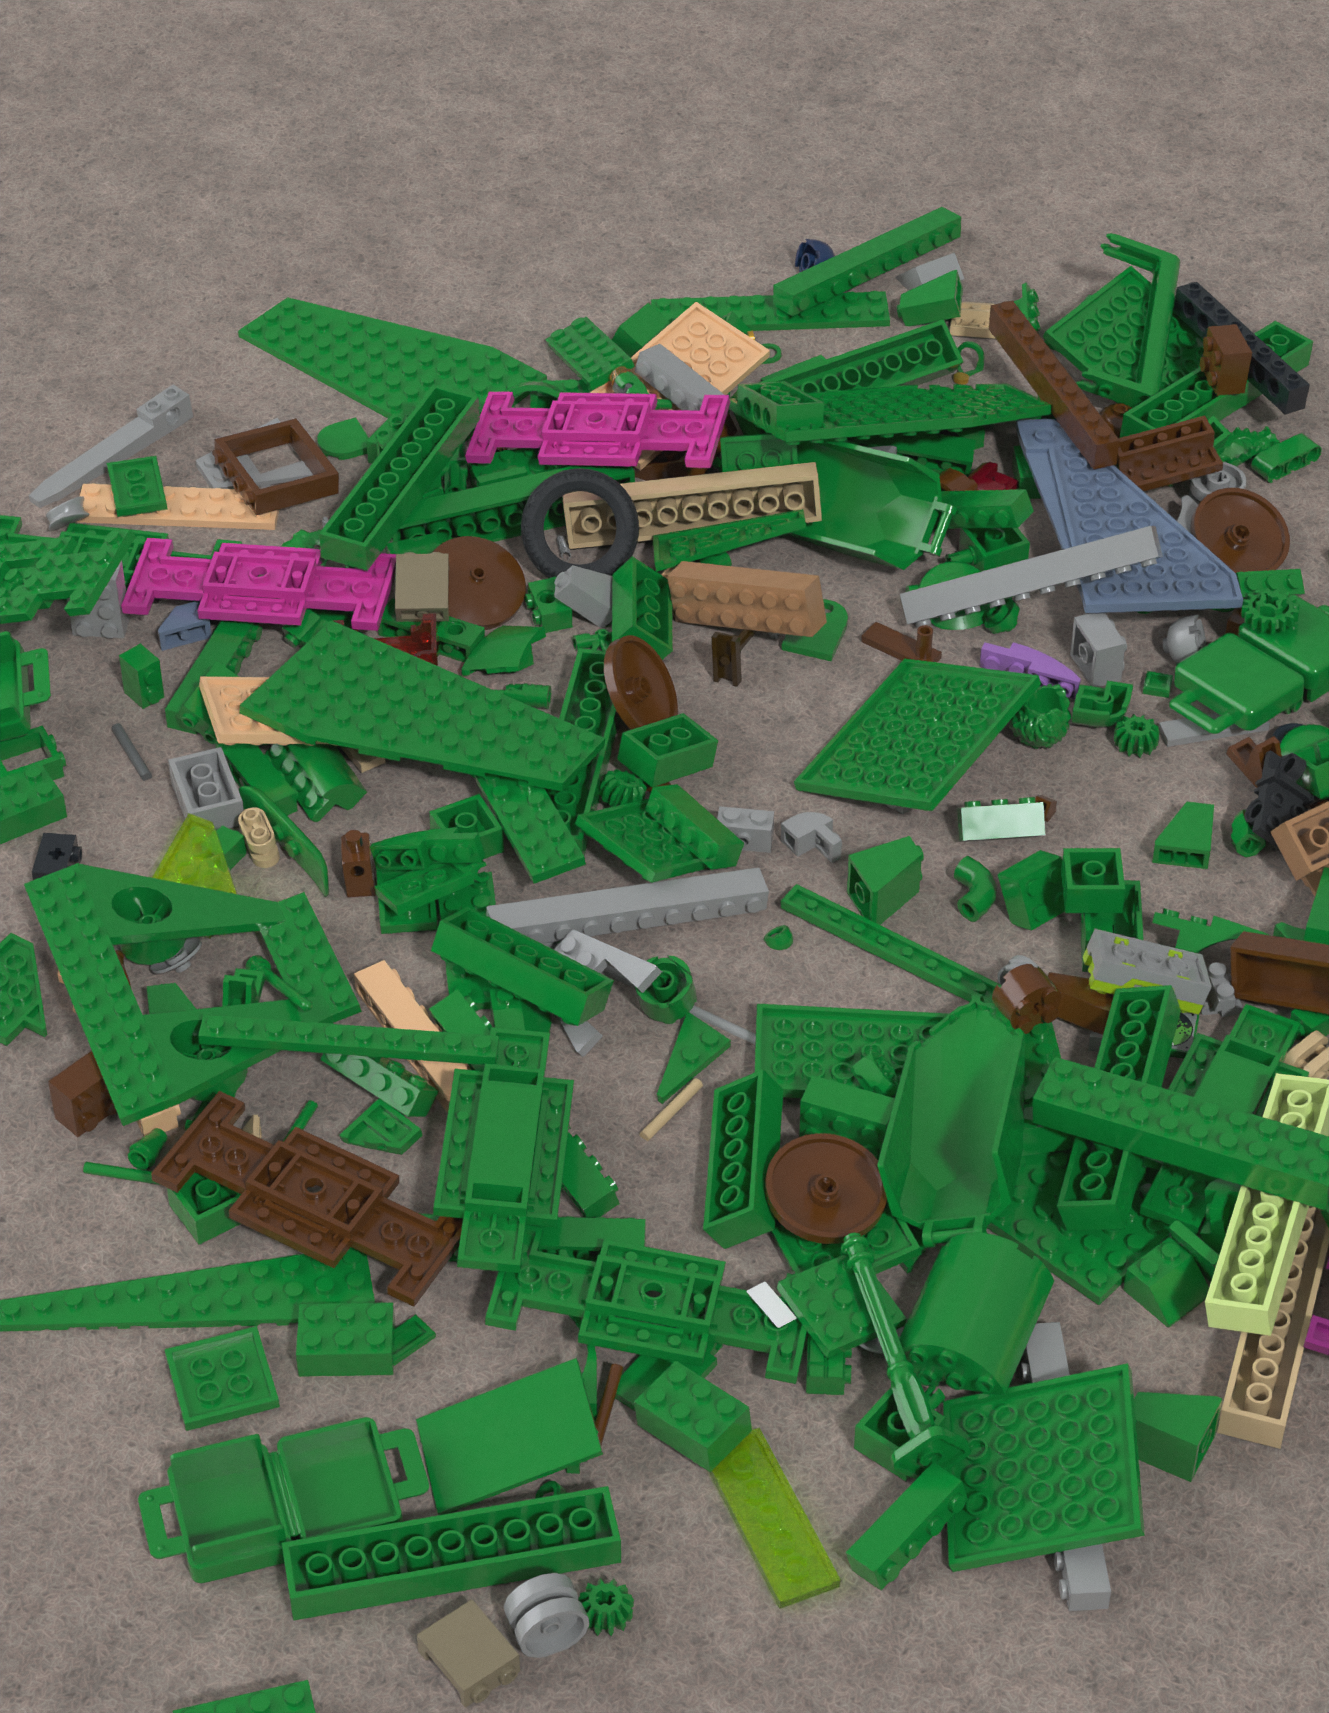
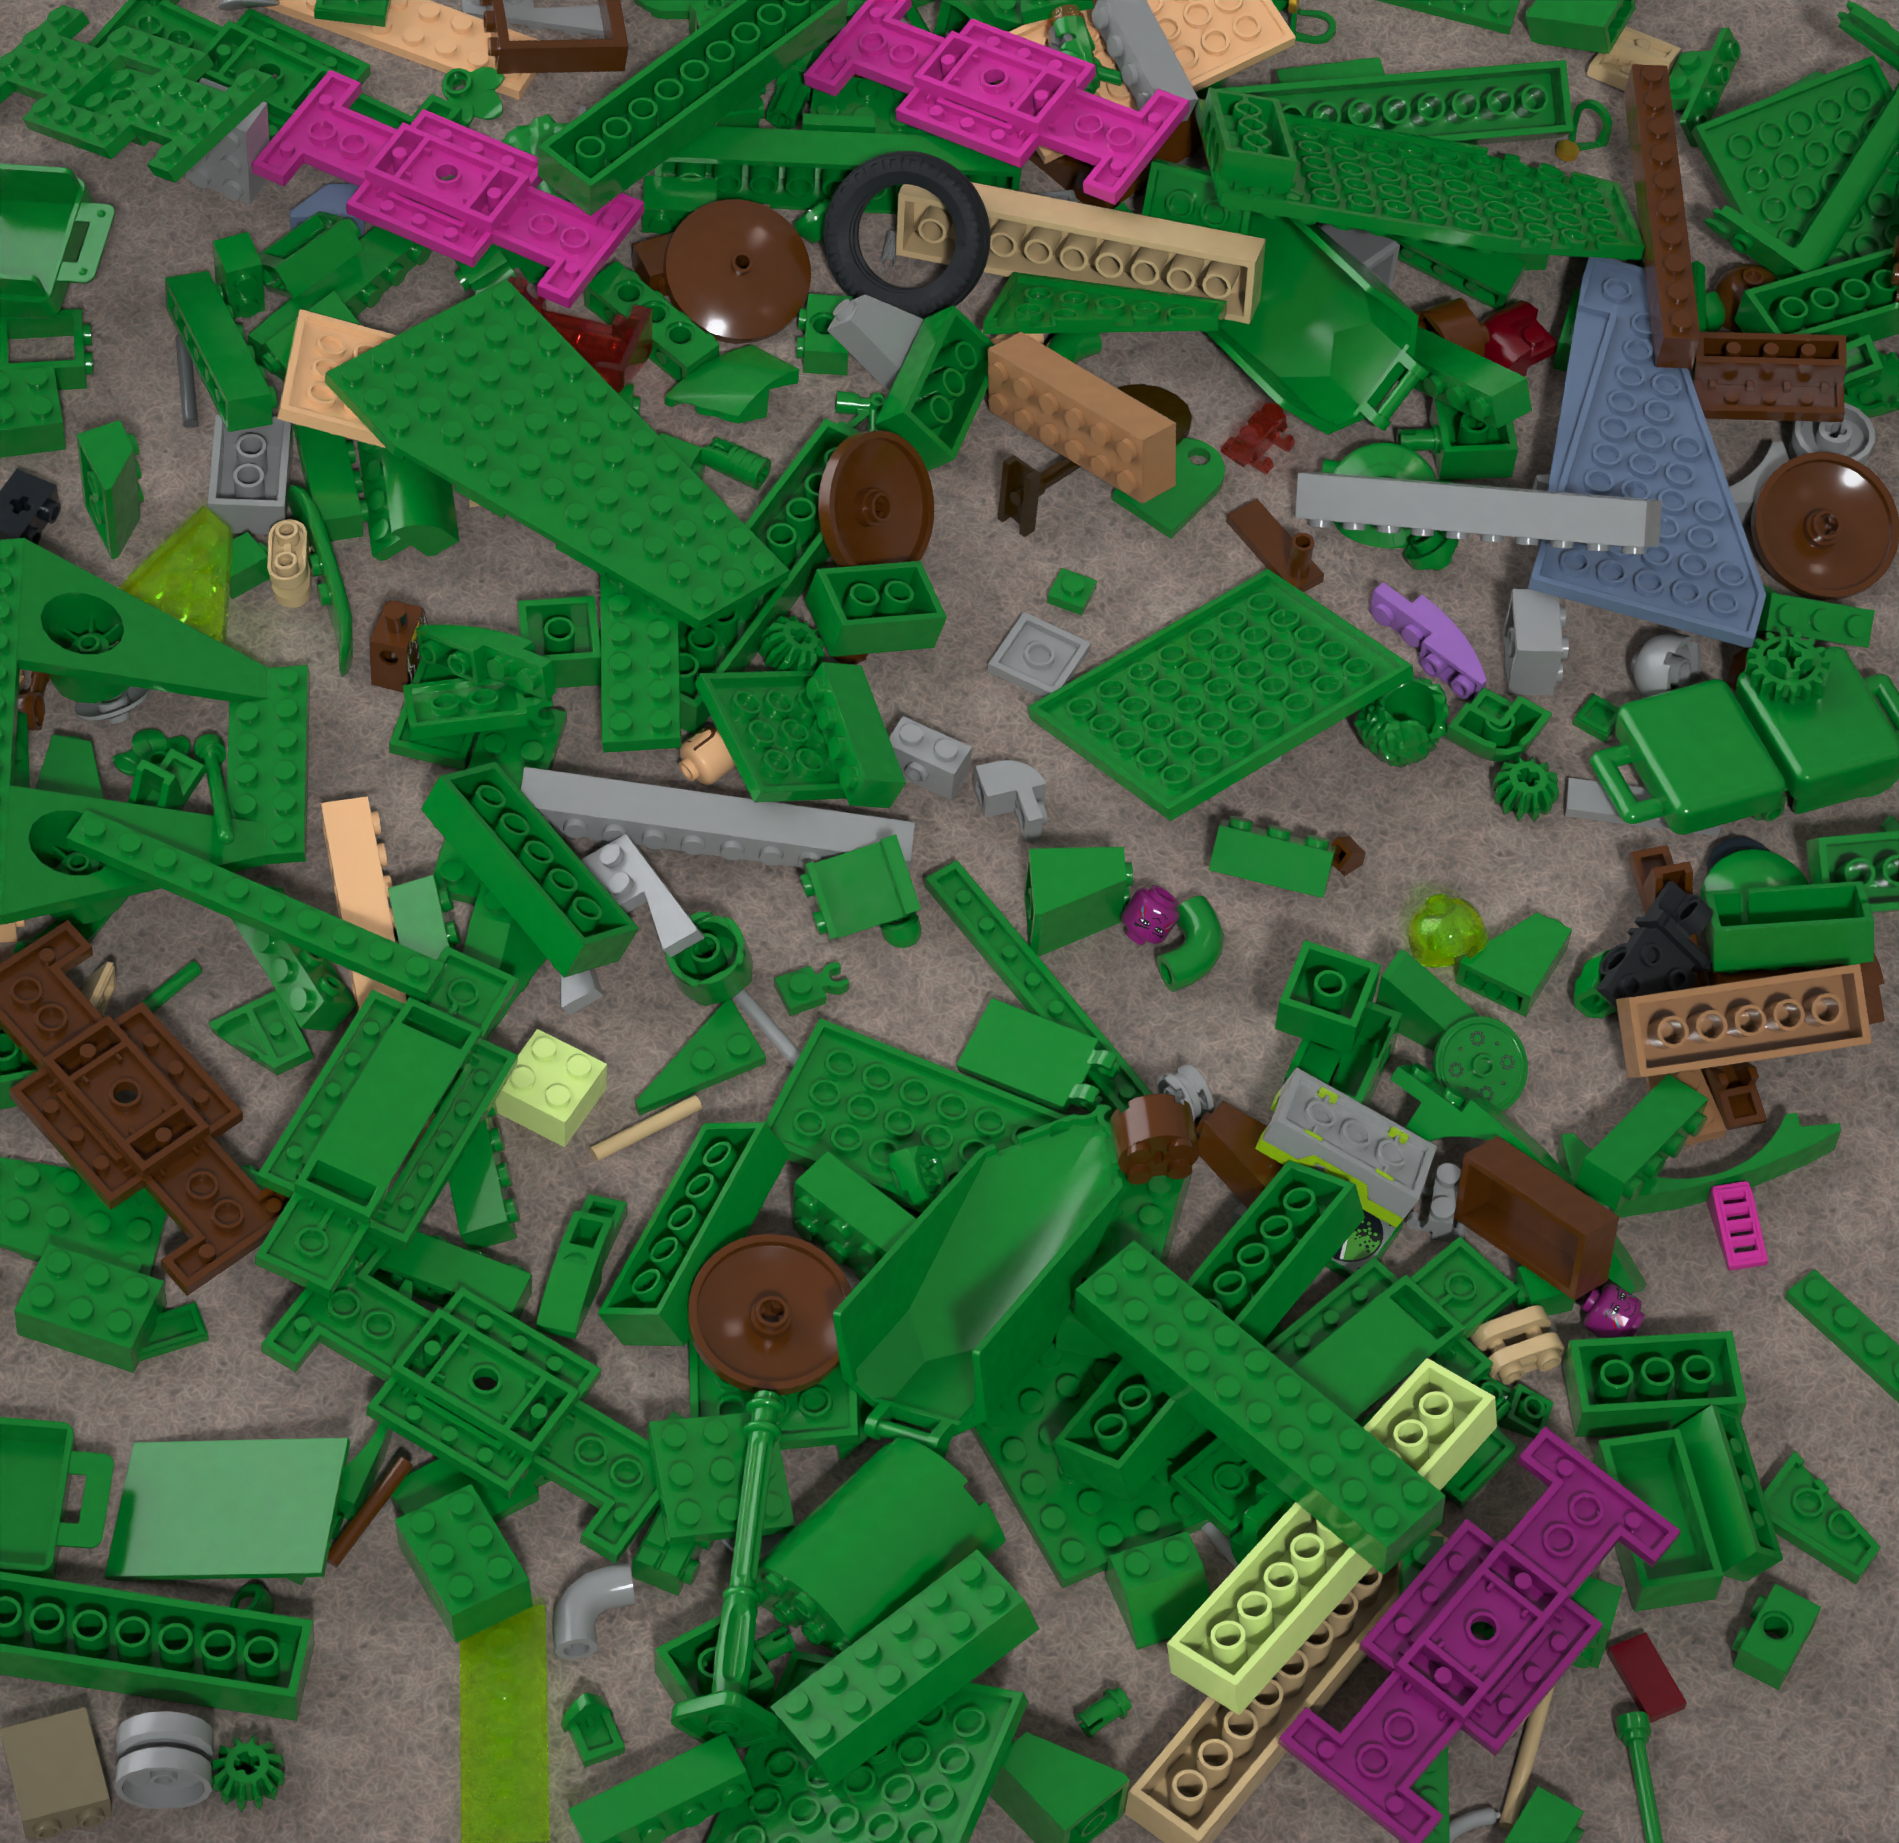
camera: 15 degrees right, 10 degrees up
(114, 820) = (111, 483): none -> green slope
(151, 722) = (220, 351): none -> green brick
(186, 647) = (309, 253): none -> green window
(212, 982) = (150, 746): none -> green plate
(246, 530) = (477, 96): none -> green plate
(422, 586) = (654, 260): dark tan panel -> none
(512, 541) = (811, 223): none -> green cone
(599, 1101) = (552, 1088): none -> yellowish green brick
(600, 870) = (705, 757): none -> light nougat head
(674, 1205) = (579, 1265): none -> green slope
(735, 993) = (805, 990): none -> green plate
(745, 917) = (860, 889): none -> green panel
(771, 1304) = (631, 1448): white sticker -> none
(783, 751) = (1038, 656): none -> light grey tile
(784, 708) = (1071, 591): none -> green plate
(785, 1418) = (582, 1605): none -> light grey cylinder
(831, 1499) = (592, 1729): none -> green tile
(858, 585) = (1258, 438): none -> clear red piece
(913, 984) = (1036, 1058): none -> green tile
(940, 878) = (1150, 915): none -> magenta head
(1033, 890) = (1255, 973): green brick -> none
(1037, 1377) = (904, 1668): none -> green brick
(1135, 828) = (1444, 930): none -> clear neon green cylinder
(1159, 881) = (1423, 1000): none -> green slope
(1172, 1366) = (1103, 1711): none -> green pin
(1198, 895) = (1481, 1061): none -> green shield
(1203, 1254) = (1207, 1551): green tile -> none

